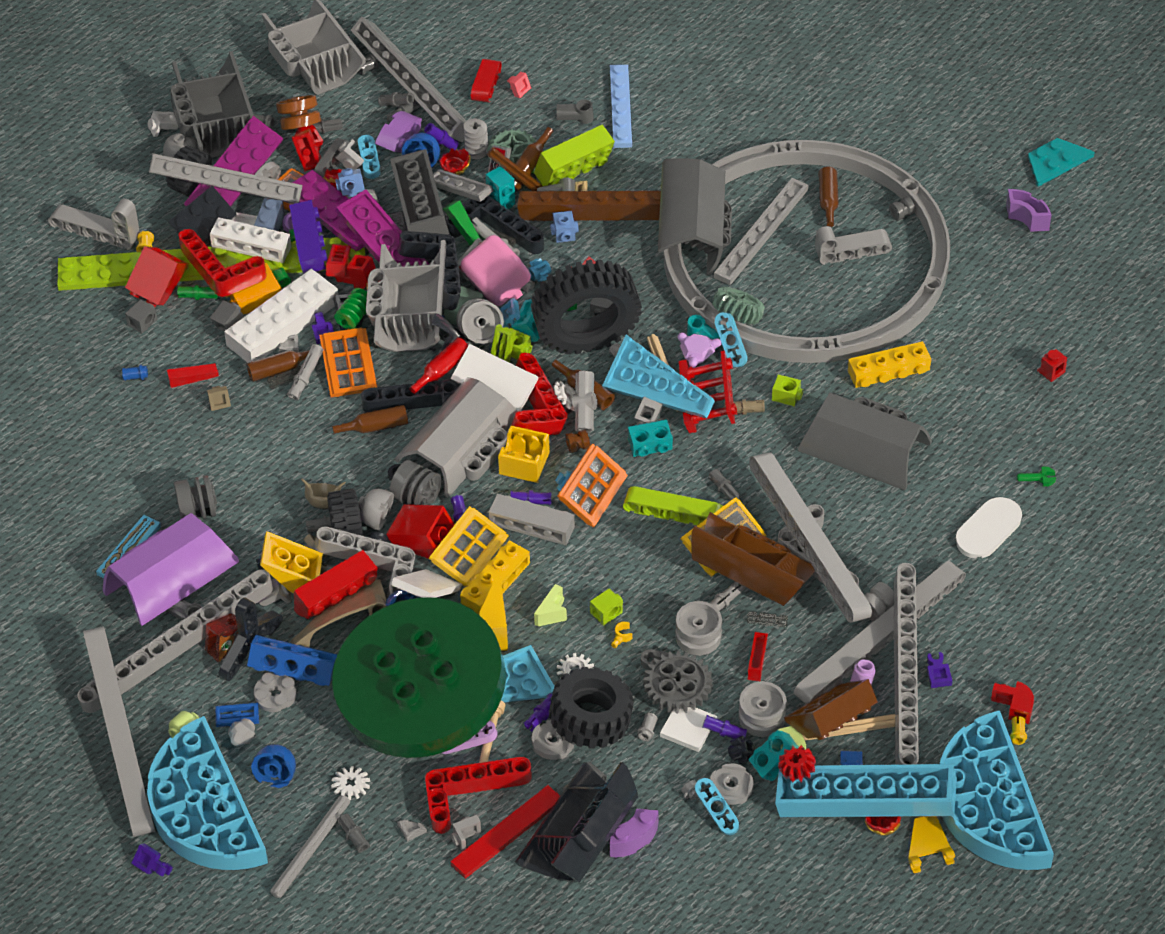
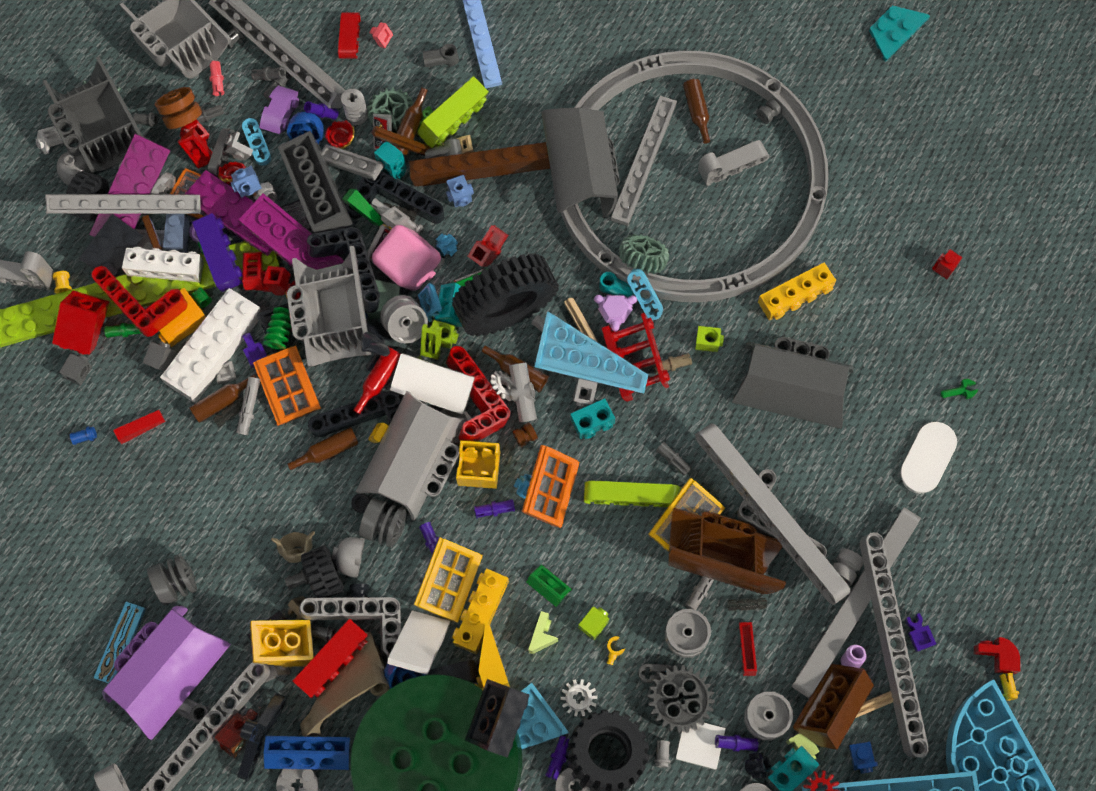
camera: 10 degrees left, 20 degrees up
(218, 398) = (170, 450): dark tan tile -> none
(245, 210) = (152, 233): none -> reddish brown tile
(342, 97) = (216, 78): none -> coral axle
(420, 528) = (397, 570): red slope -> none
(428, 415) = (378, 432): none -> yellow tile
(489, 634) = (497, 718): none -> black slope
(491, 230) = (394, 217): none -> light grey tile
(532, 519) = (501, 536): light grey brick -> none
(568, 571) = (548, 585): none -> green slope
(1028, 210) = (887, 93): medium lavender brick -> none

